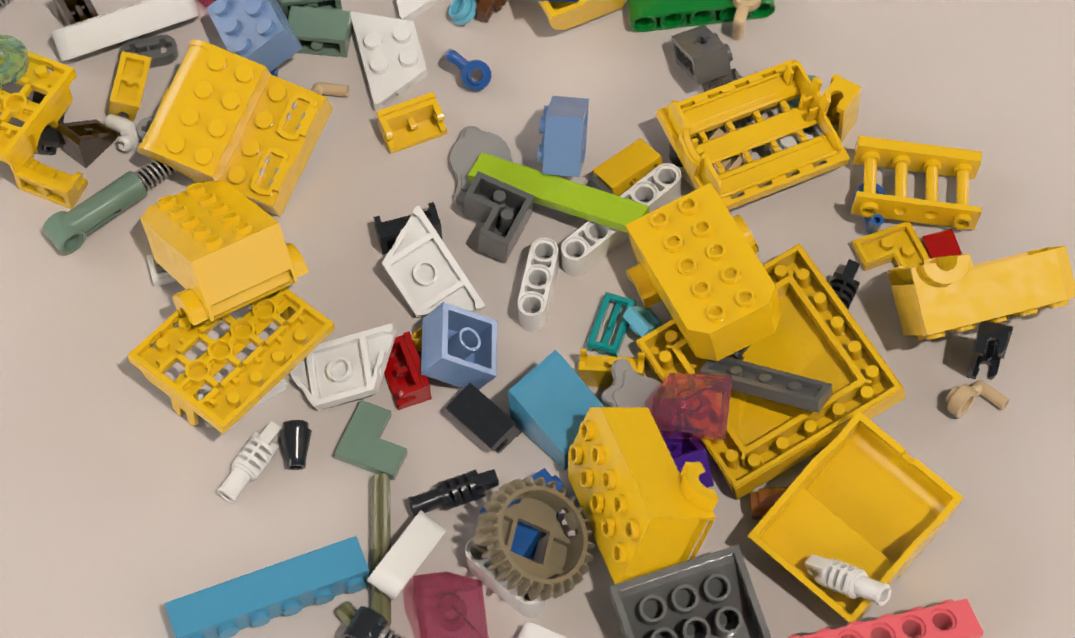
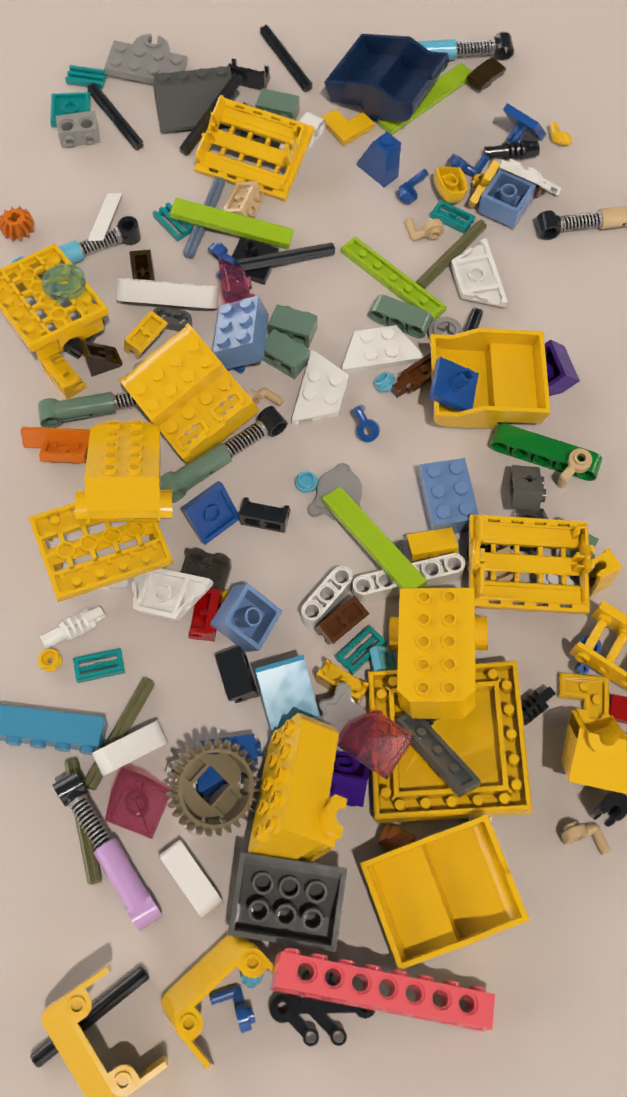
camera: 25 degrees right, 5 degrees up
(101, 261) = (57, 443): none -> orange bracket
(128, 133) = (128, 363): white arm -> none
(242, 504) = (48, 654): none -> yellow plate
(295, 442) = (108, 628): black cone -> none
(317, 498) = (102, 673): none -> teal tile
(344, 252) = (211, 512): none -> blue tile
(348, 121) = (268, 423): none -> piece
(362, 442) = (151, 649): sand green tile -> none
(372, 313) = (208, 565): none -> clear smoke bracket
(411, 122) = (308, 443): yellow hinge -> none
(427, 270) = (258, 552): white wing -> none
(435, 167) = (306, 481): none -> medium azure plate
(455, 491) = (188, 717): black hinge -> none
(502, 211) = (331, 535): dark grey brick -> none
(563, 136) = (398, 502): medium blue brick -> none
(572, 301) = (342, 620): none -> reddish brown hinge
(618, 104) = (447, 494): none -> medium blue brick
(846, 579) = (413, 936): white hinge -> none

